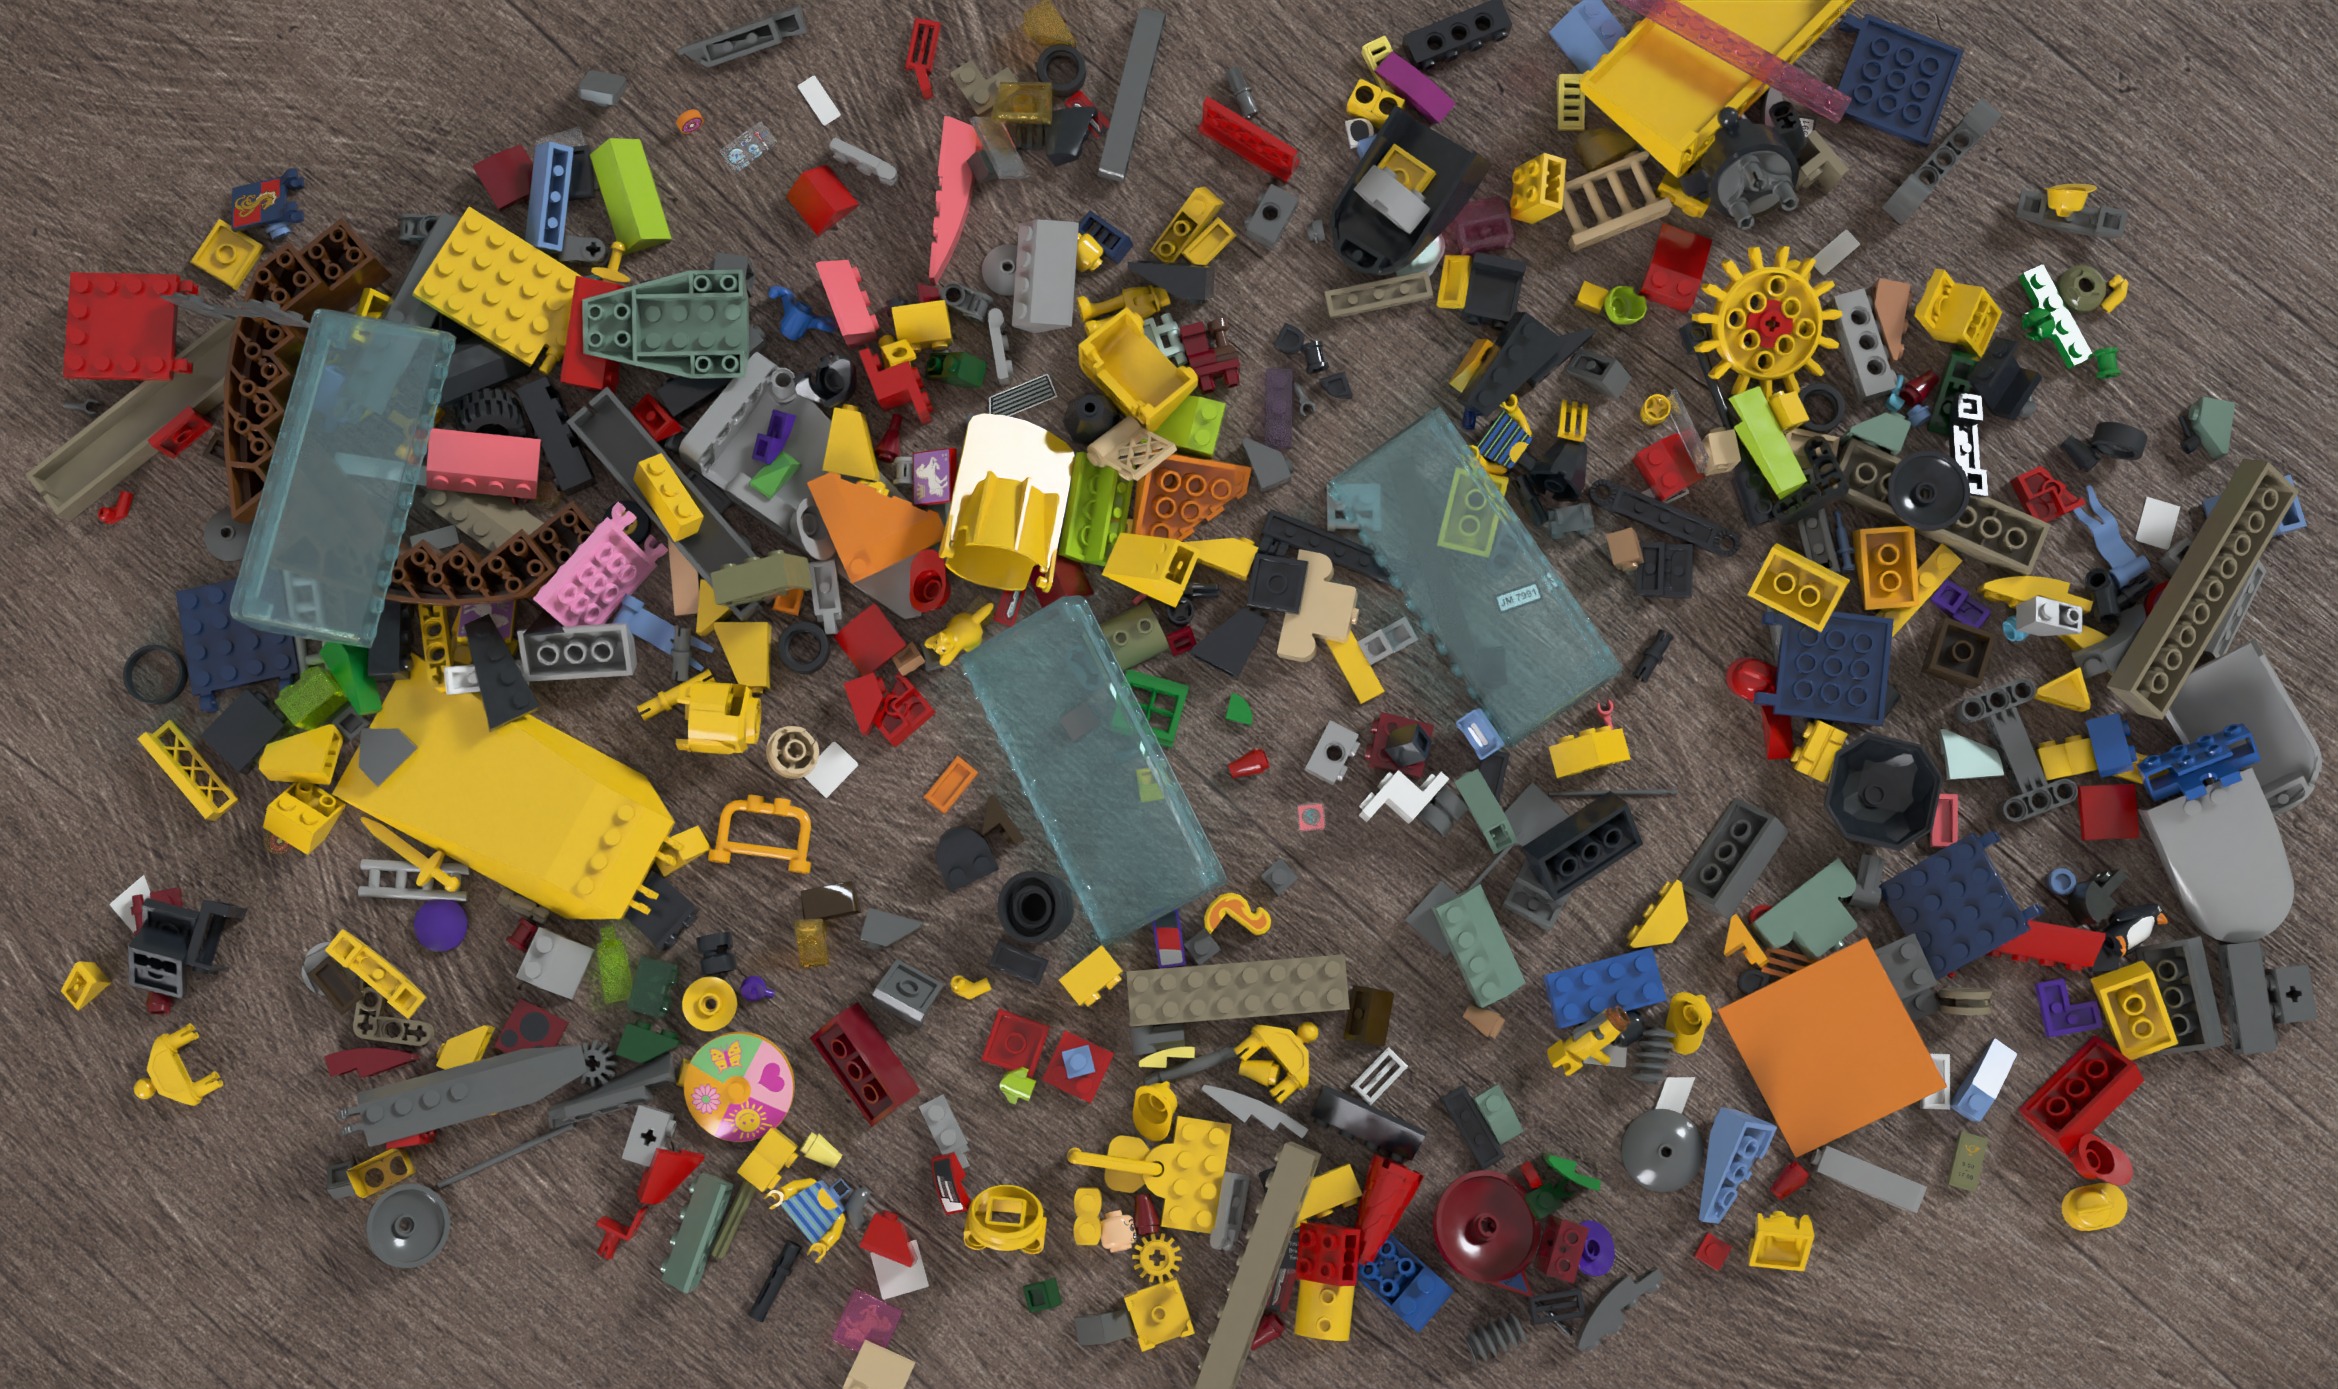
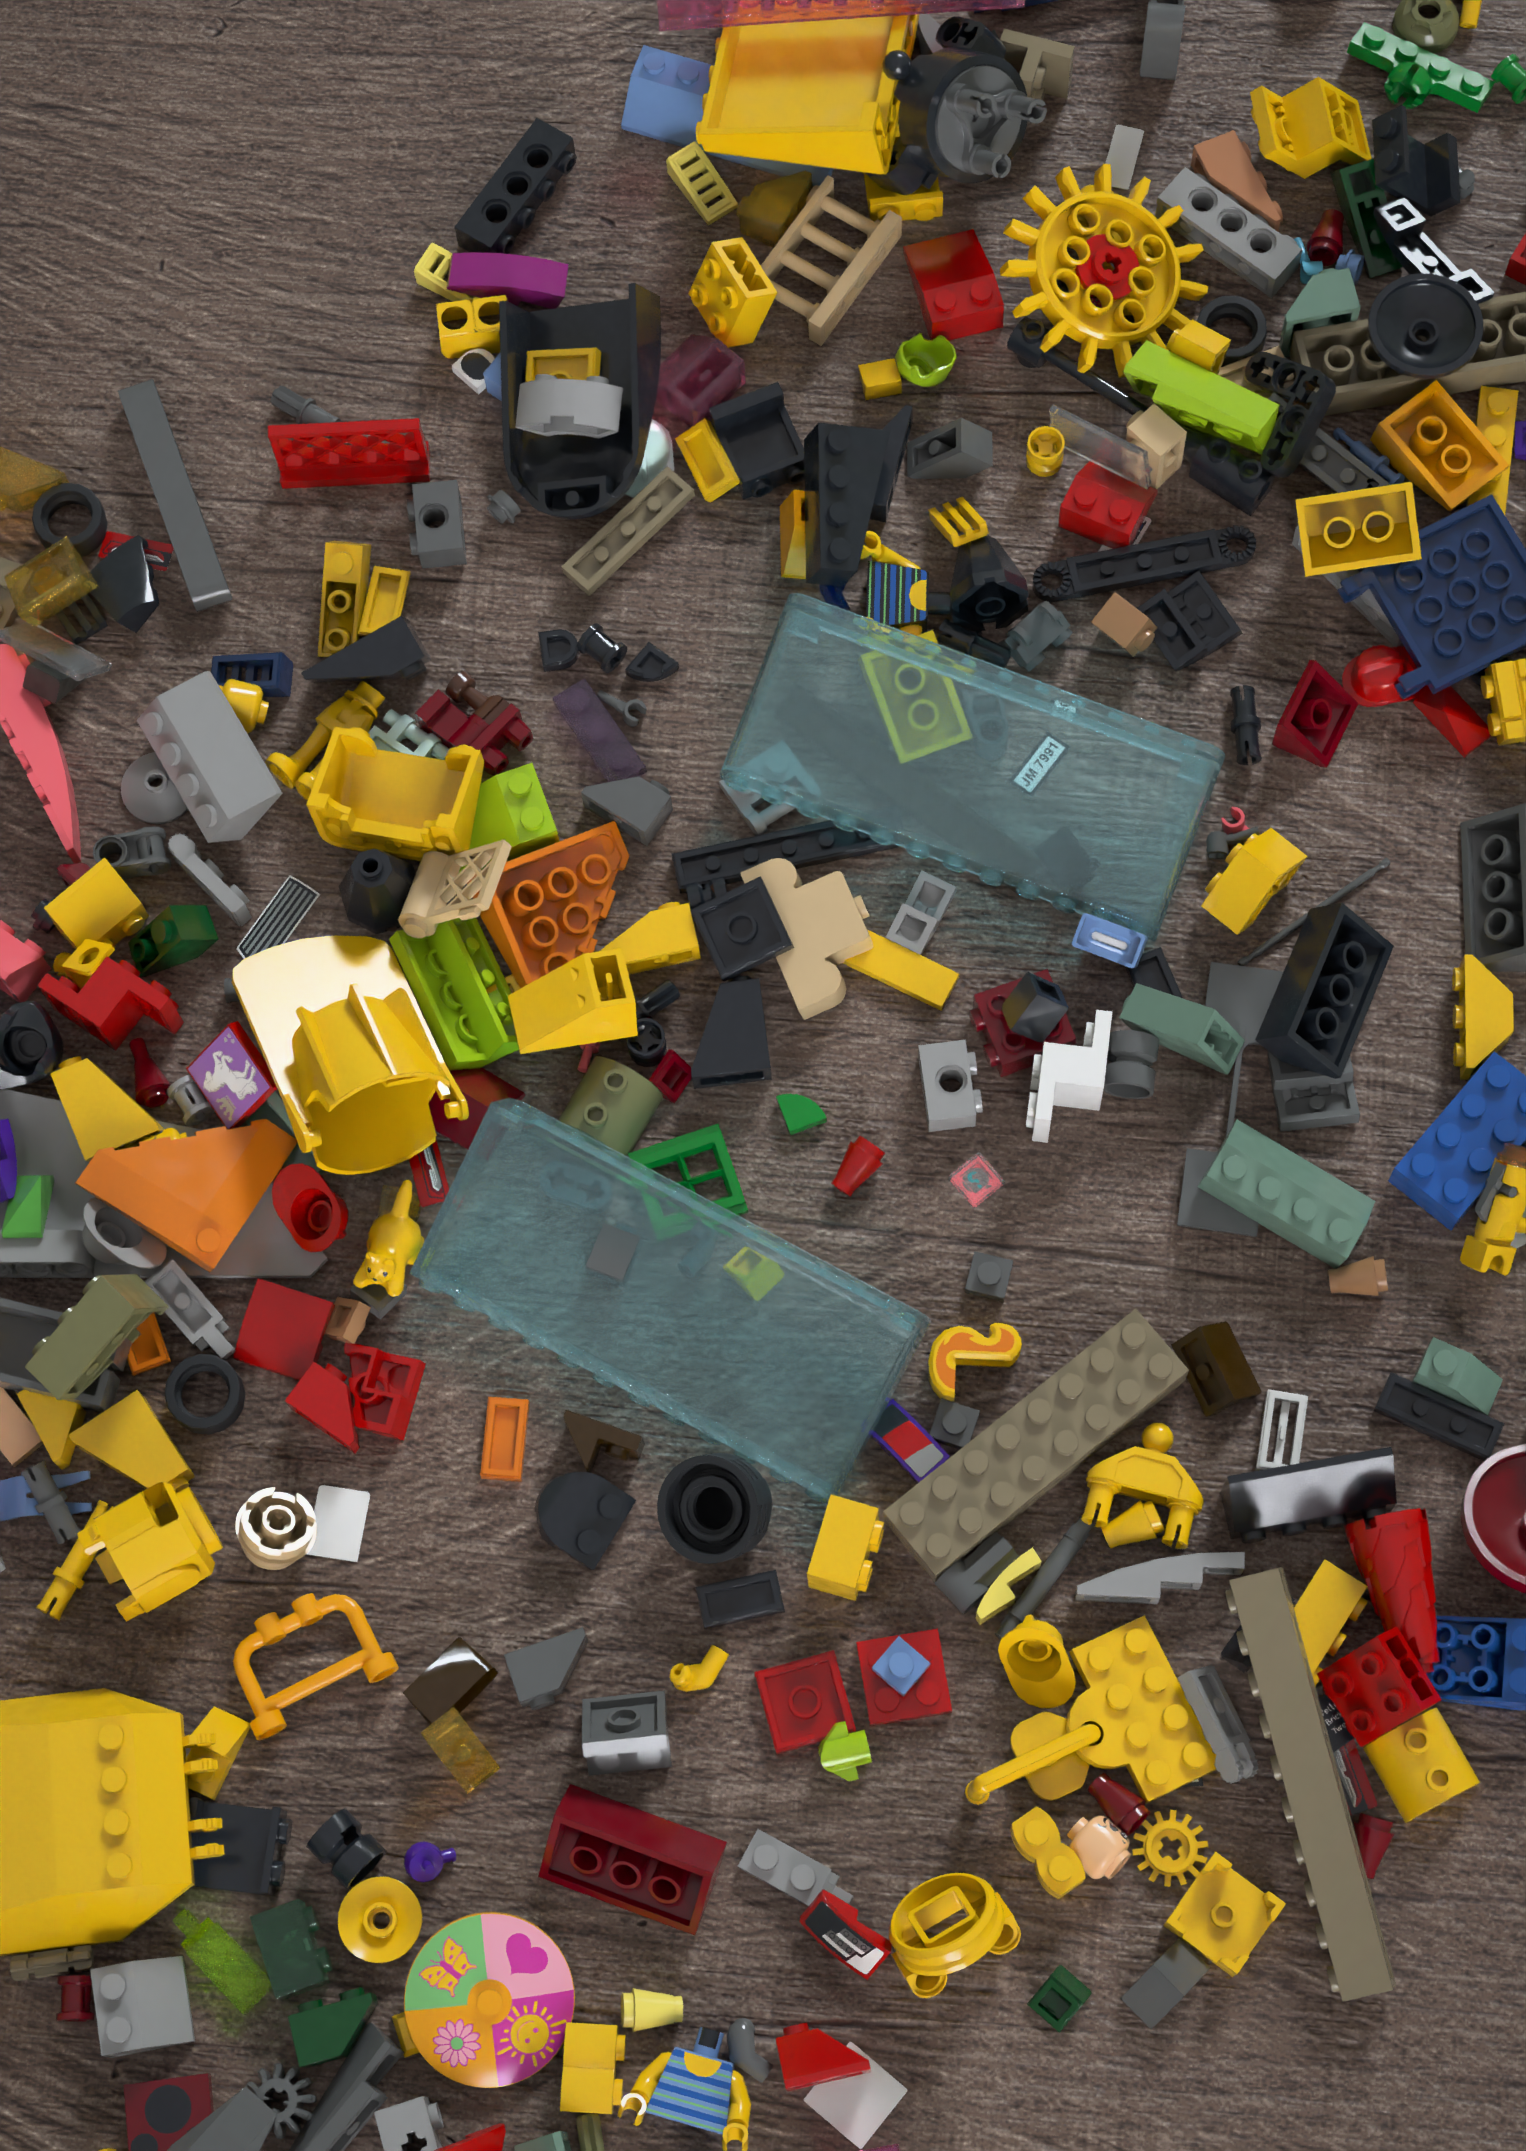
camera: 30 degrees left, 10 degrees down
(1586, 715) = (1218, 842): none -> dark grey hand
(1696, 679) = (1315, 717): none -> dark red slope

